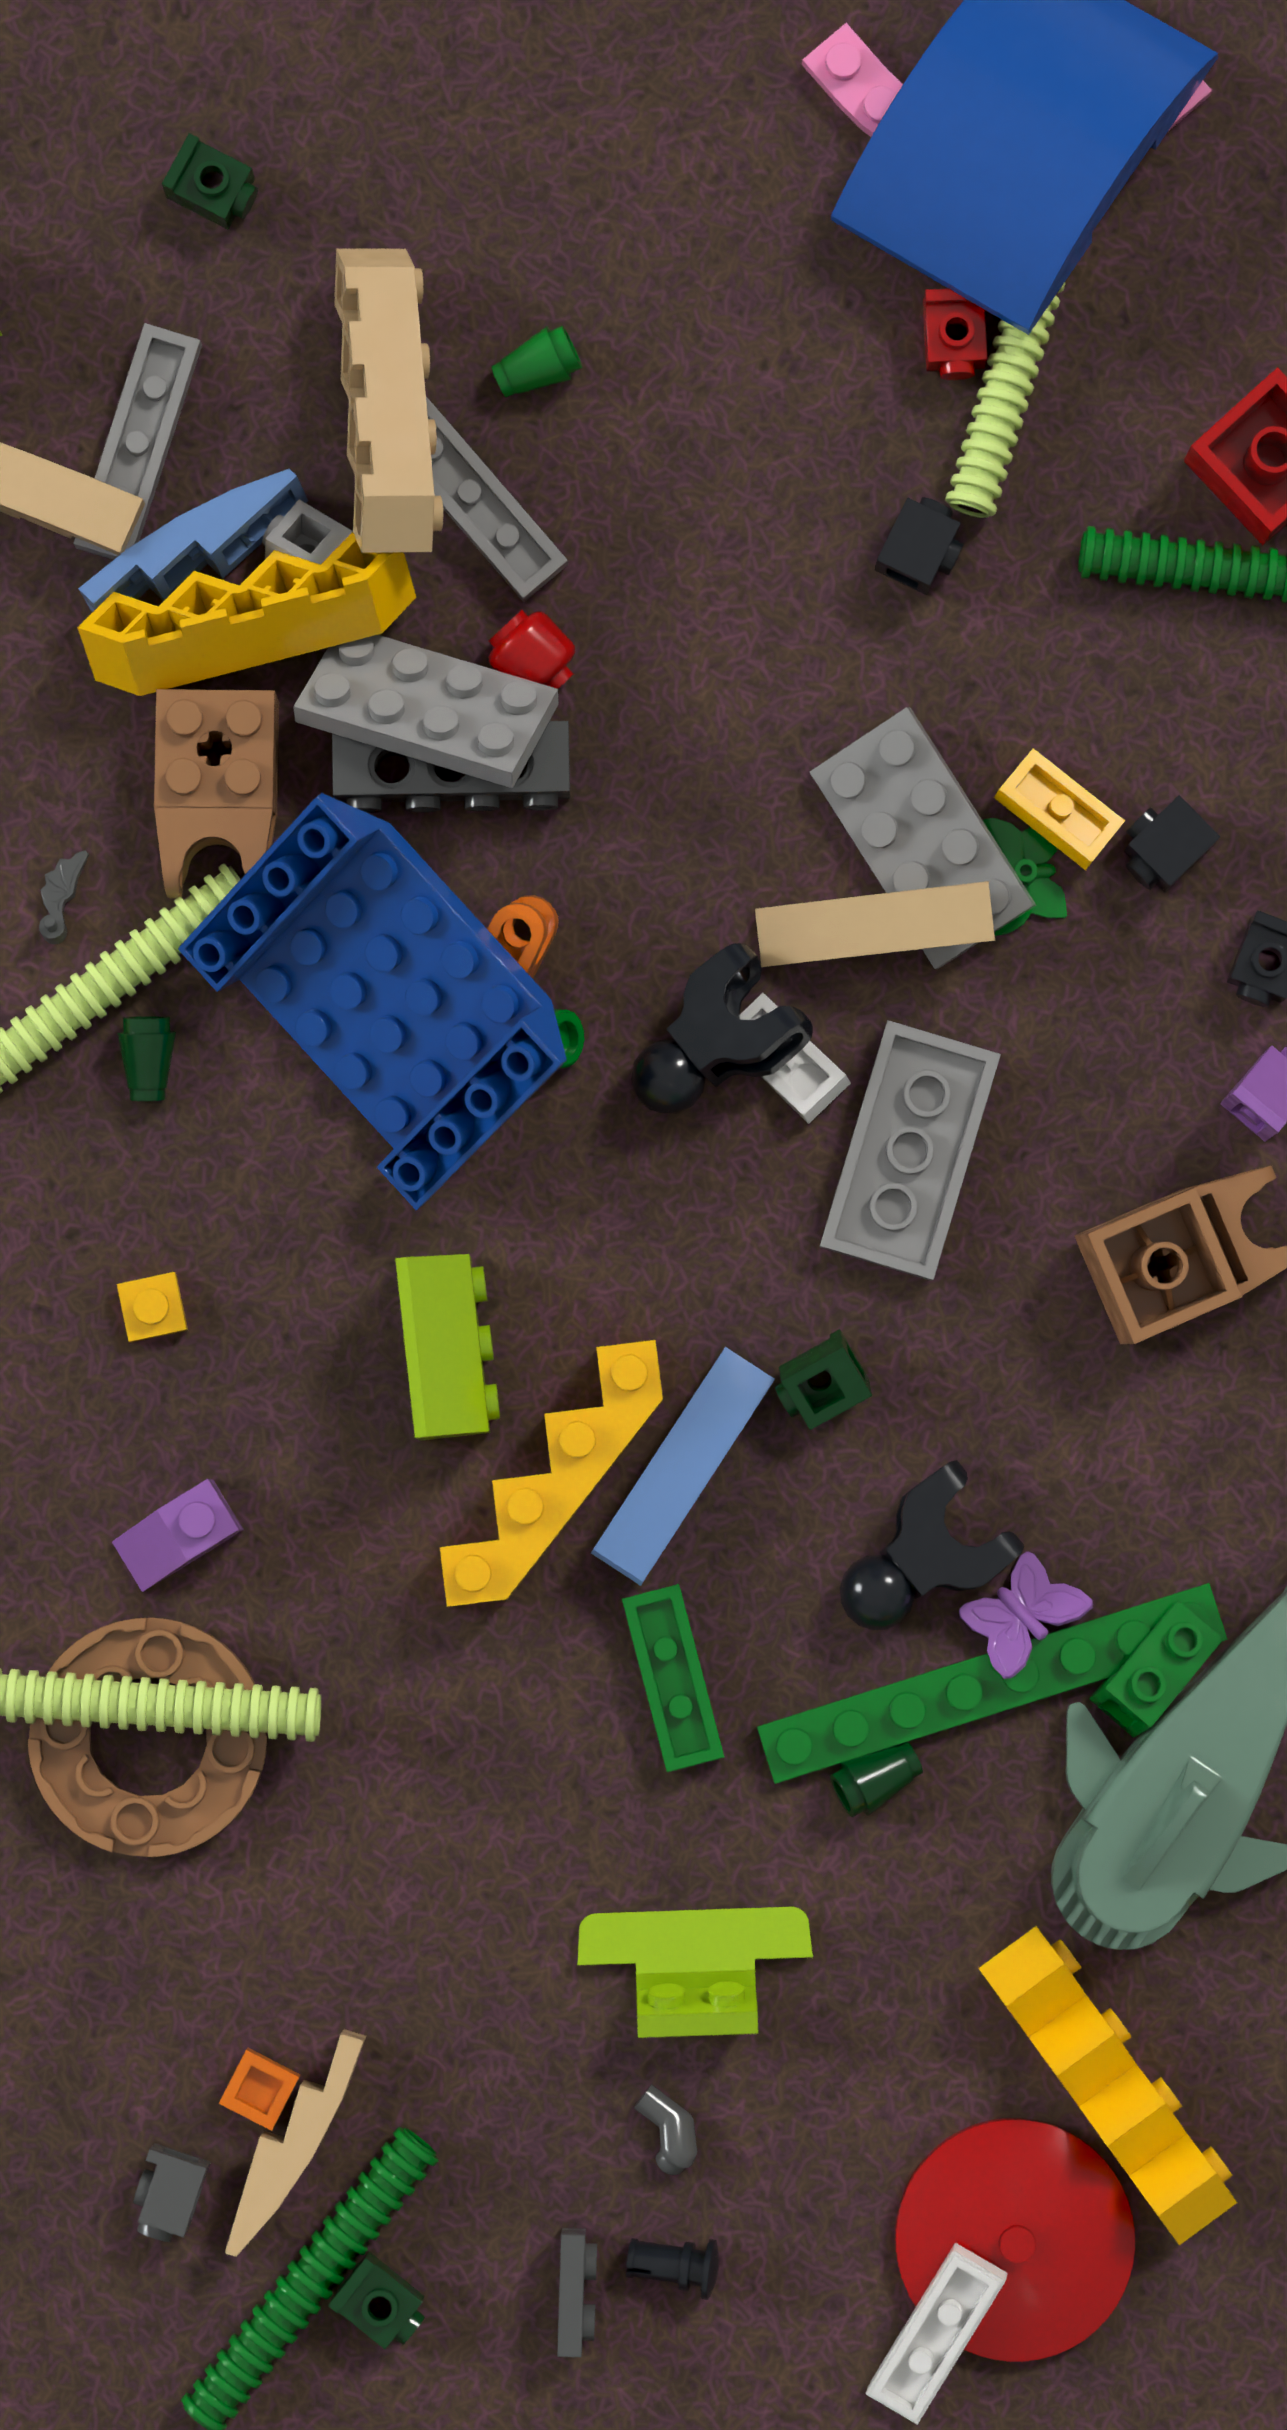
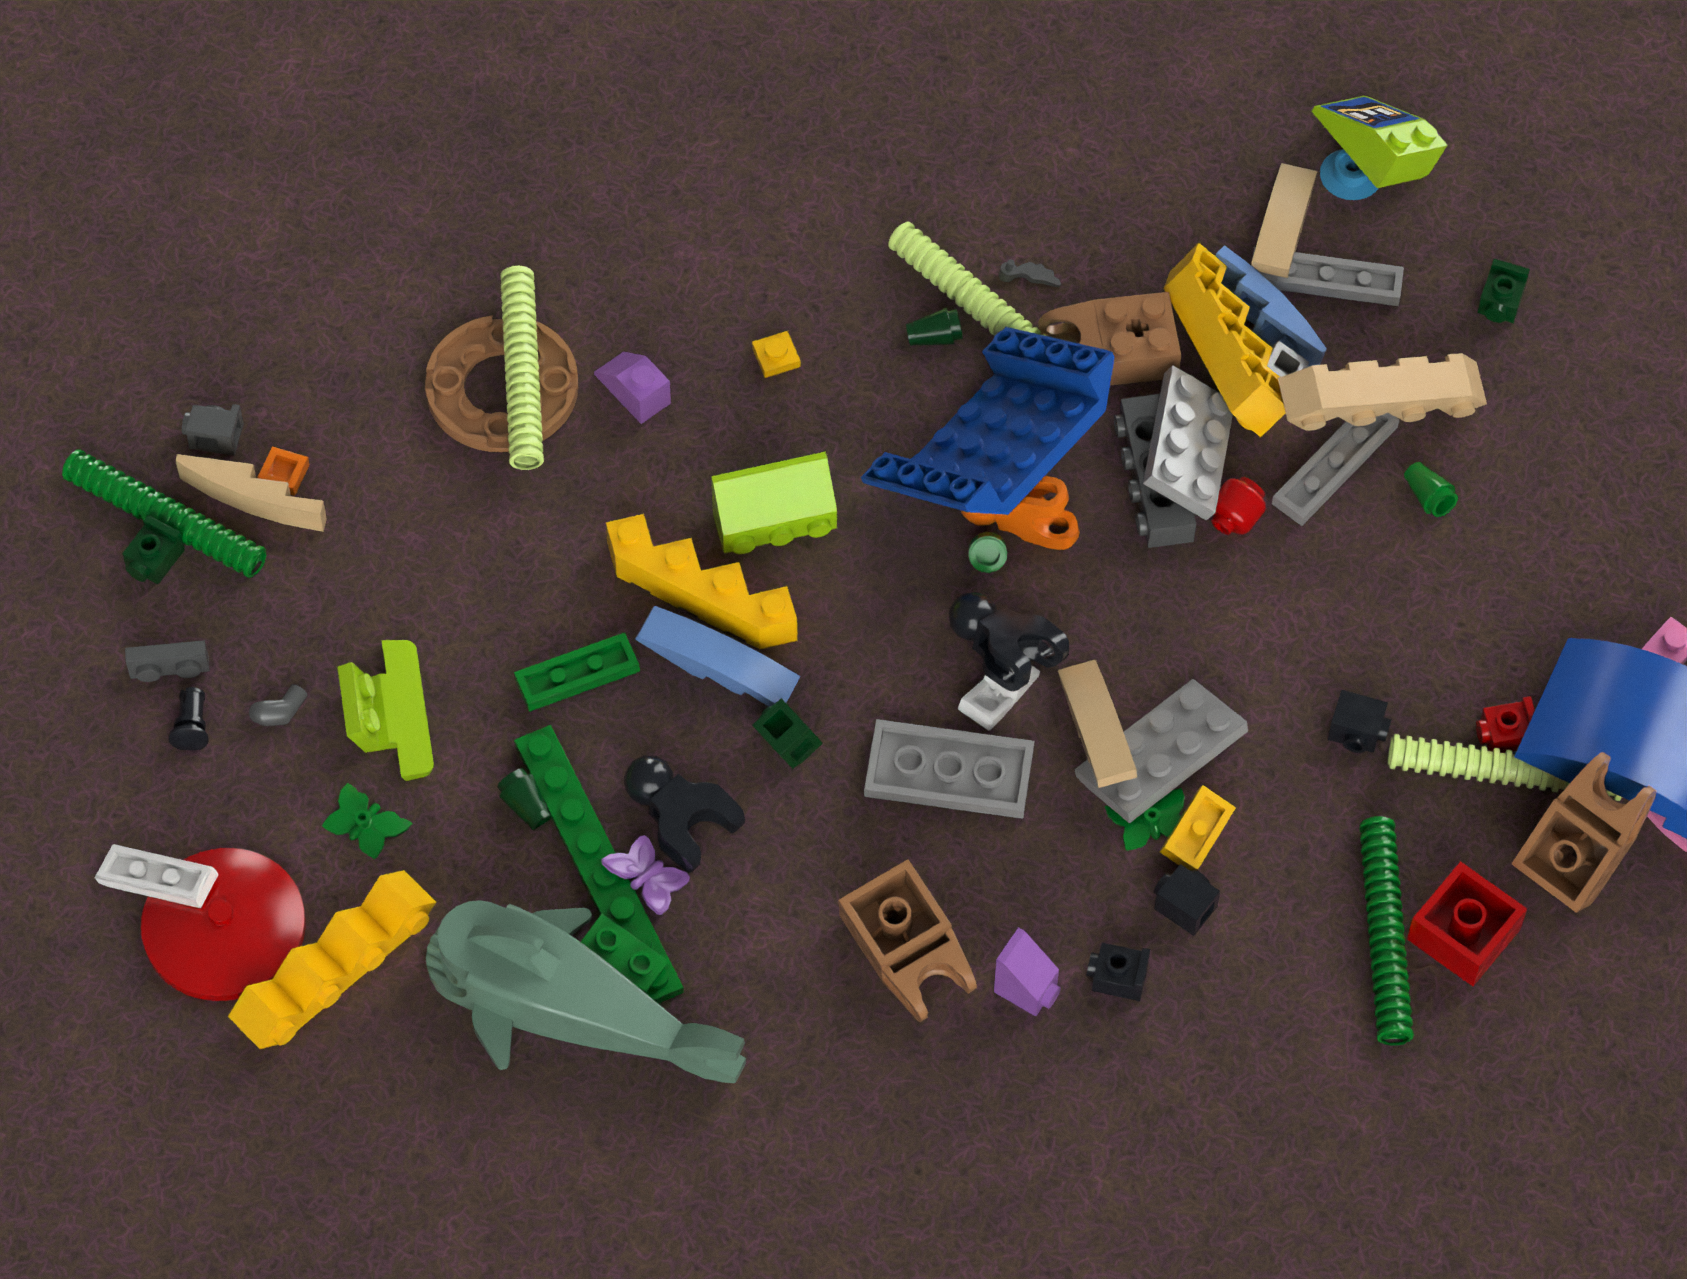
camera: 80 degrees right, 25 degrees down
(875, 2020) = (362, 823): none -> green piece
(1178, 264) = (1590, 824): none -> medium nougat brick

